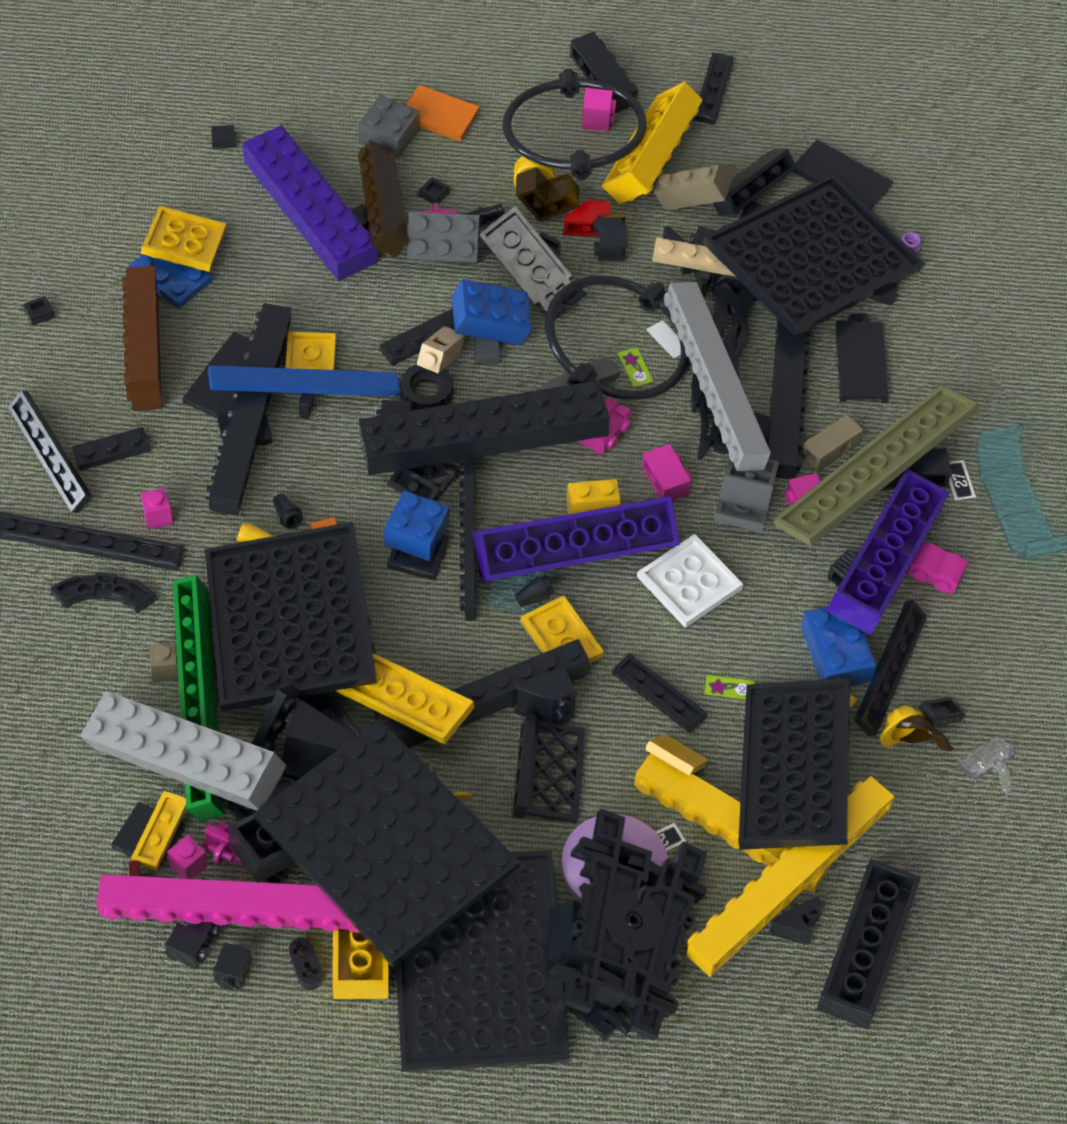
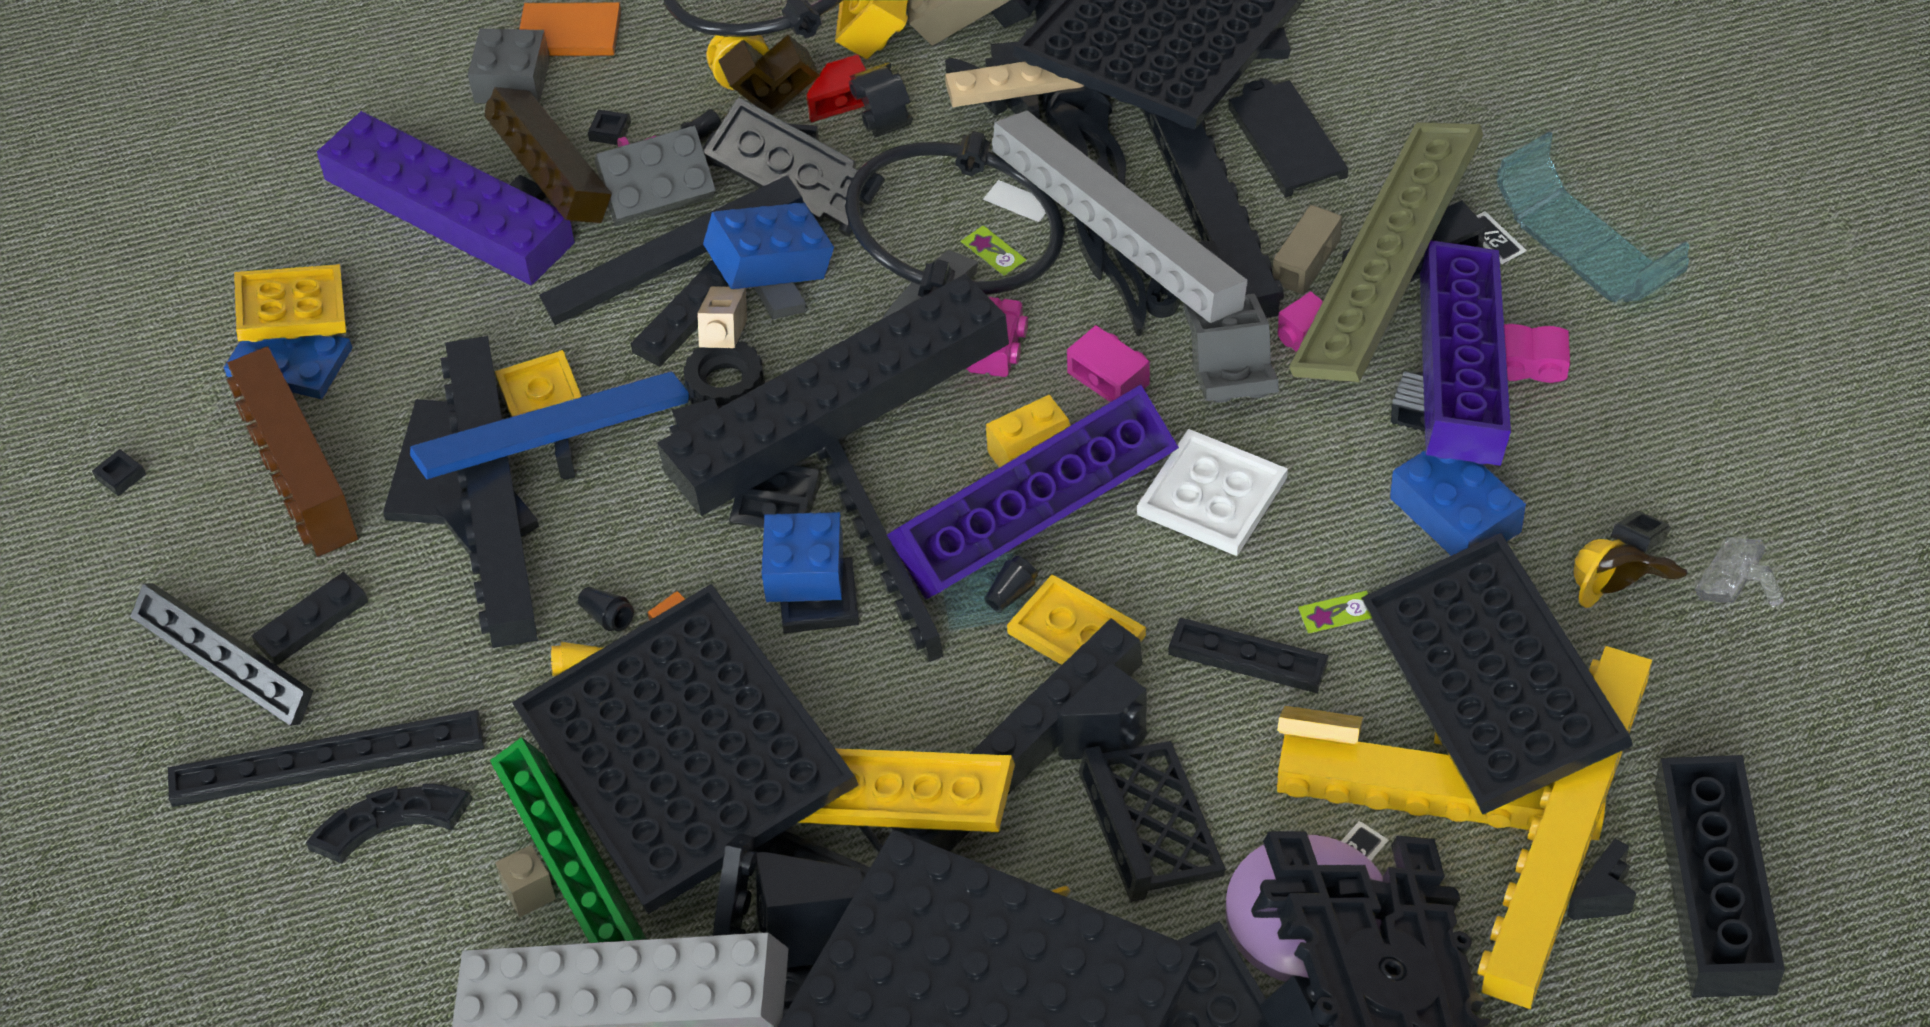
camera: 15 degrees left, 5 degrees down
(156, 508) = (415, 673): dark pink brick -> none
(223, 136) = (282, 158): black tile -> none
(421, 291) = (652, 257): none -> black tile
(890, 668) = (1541, 501): black plate -> none

